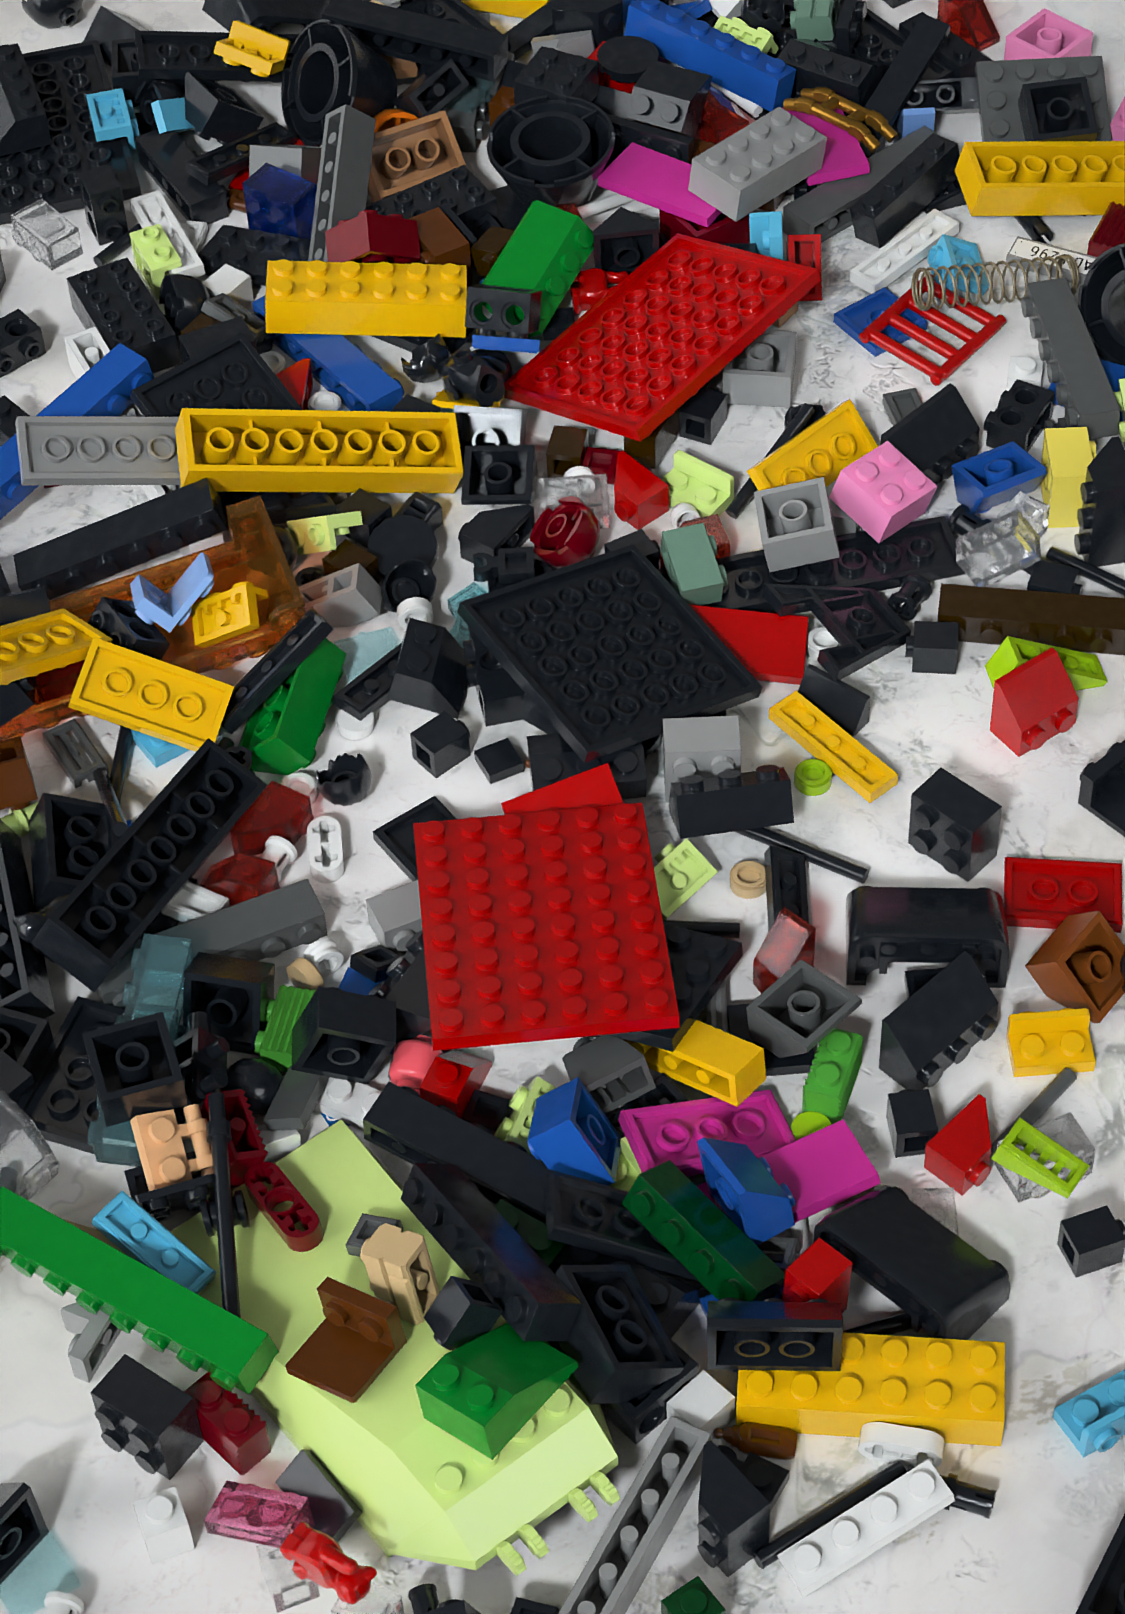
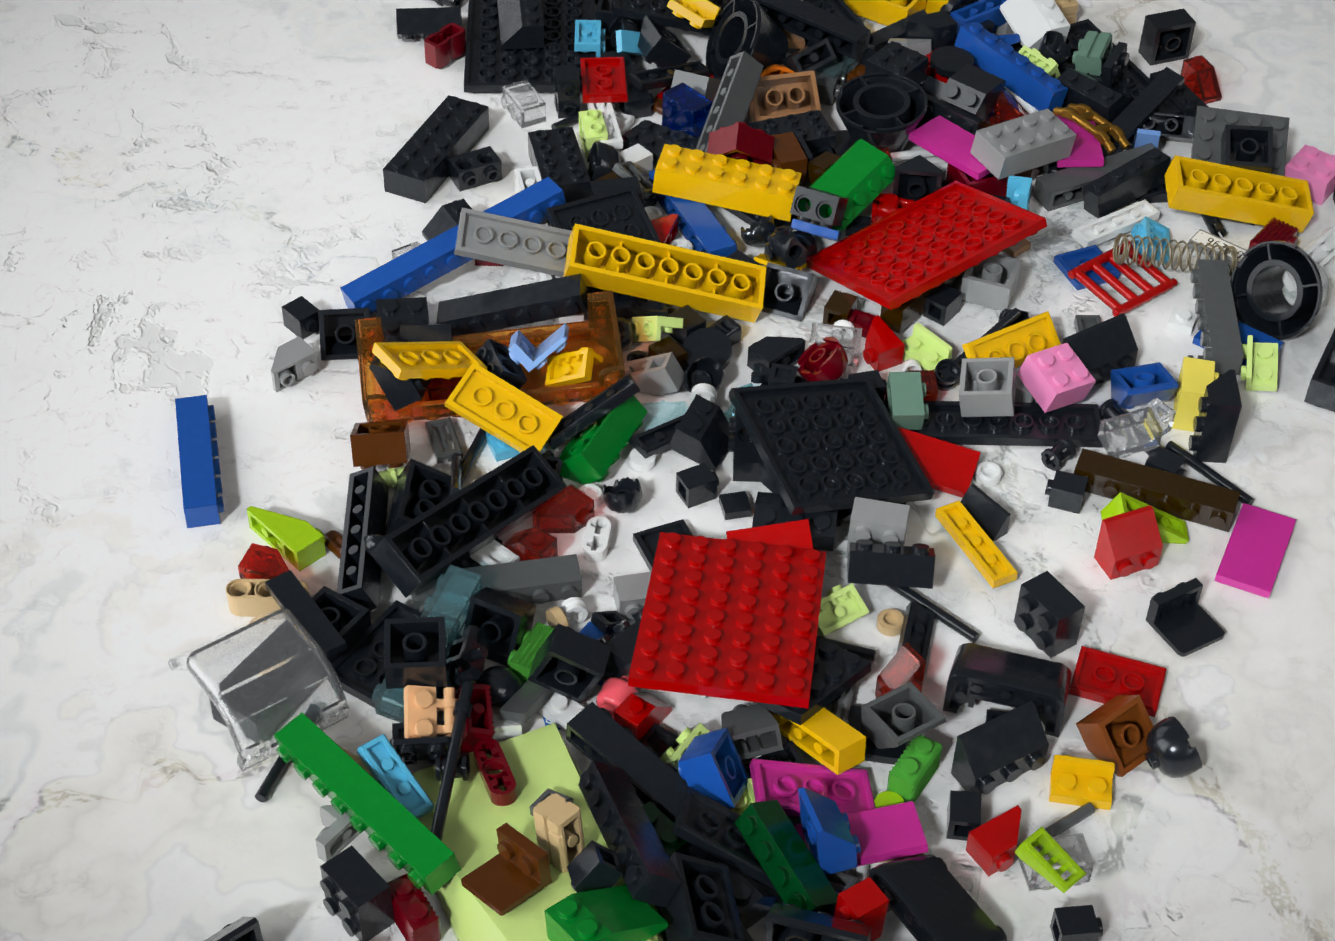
camera: 10 degrees right, 5 degrees down
(151, 178) = (603, 80): none -> red tile
(275, 850) = (564, 534): white bush -> none
(499, 475) = (787, 314): black slope -> none
(736, 509) = (948, 369): none -> black wheel
(806, 251) = (1044, 207): red slope -> none
(813, 777) = (956, 562): lime tile -> none
(852, 615) = (1015, 461): black wing -> none
(1019, 415) = (1170, 347): black brick -> none
(1048, 37) = (1255, 99): bright pink brick -> none

